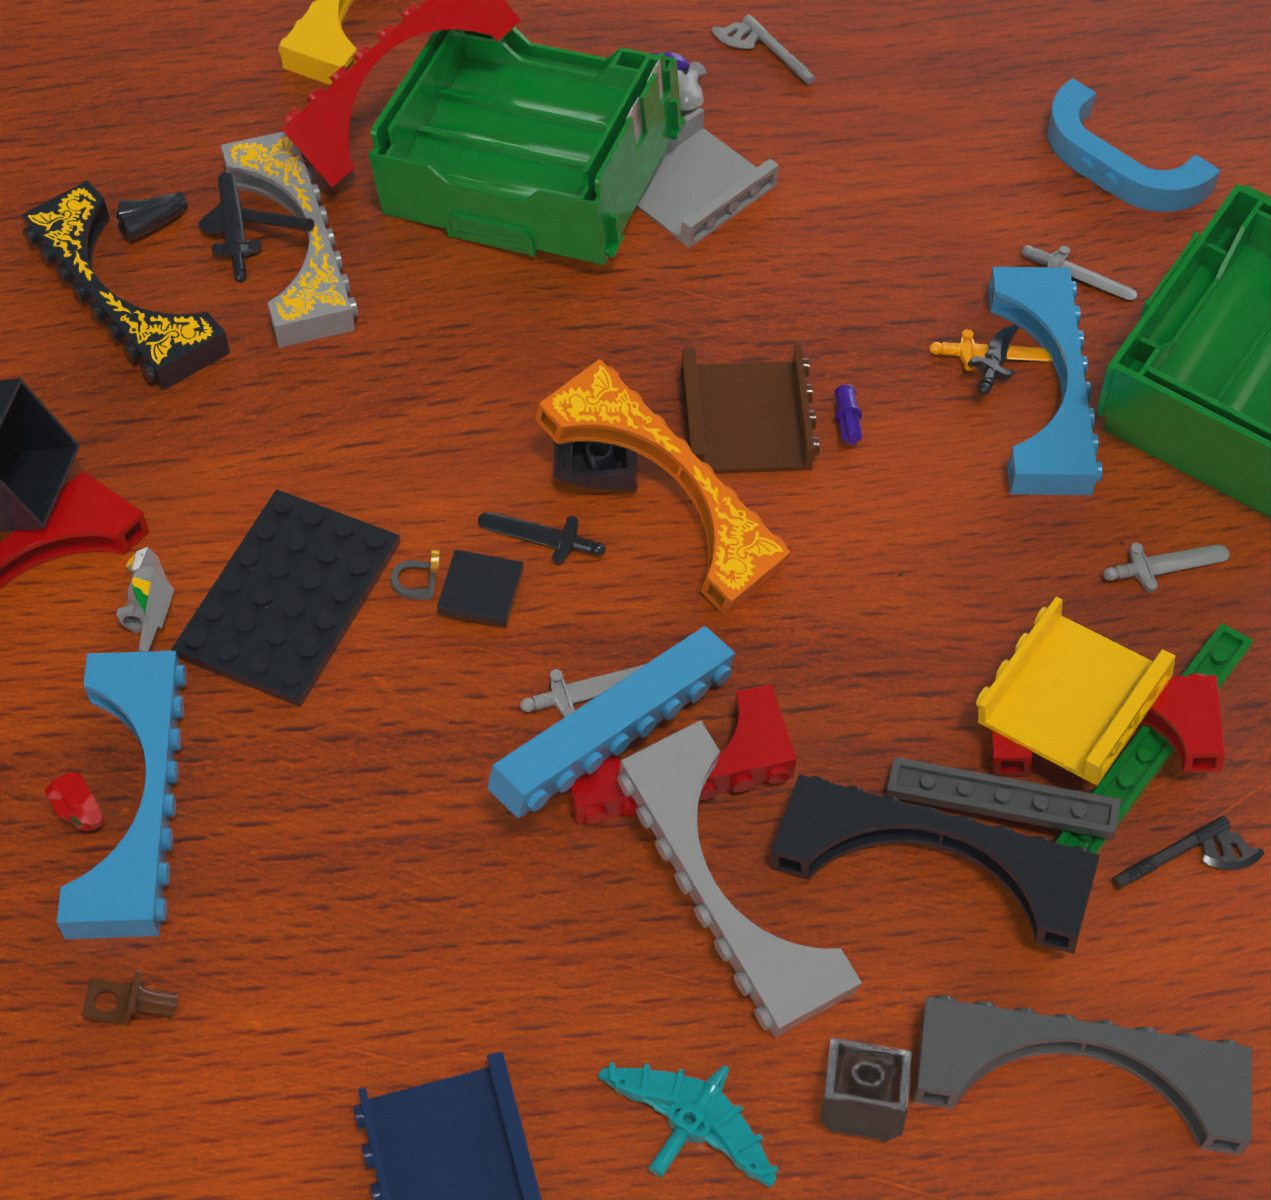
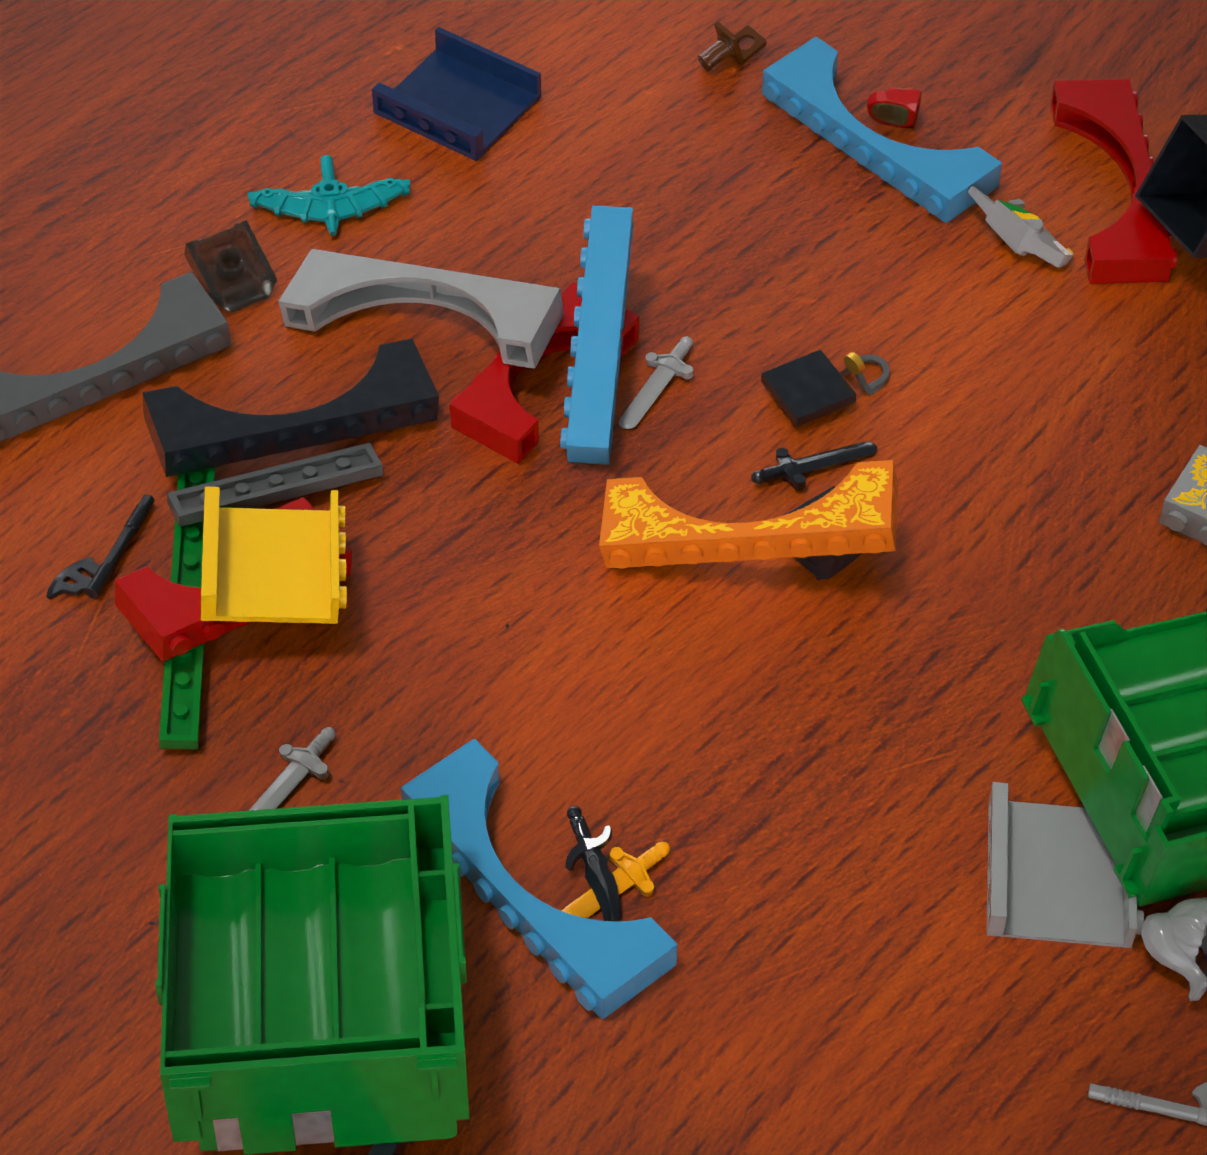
camera: 140 degrees right, 5 degrees down
(287, 597) = (938, 305): black plate -> none
(750, 414) = (767, 663): reddish brown panel -> none
(848, 414) = (675, 719): dark purple axle -> none
(1058, 260) = (628, 1038): light grey sword -> none

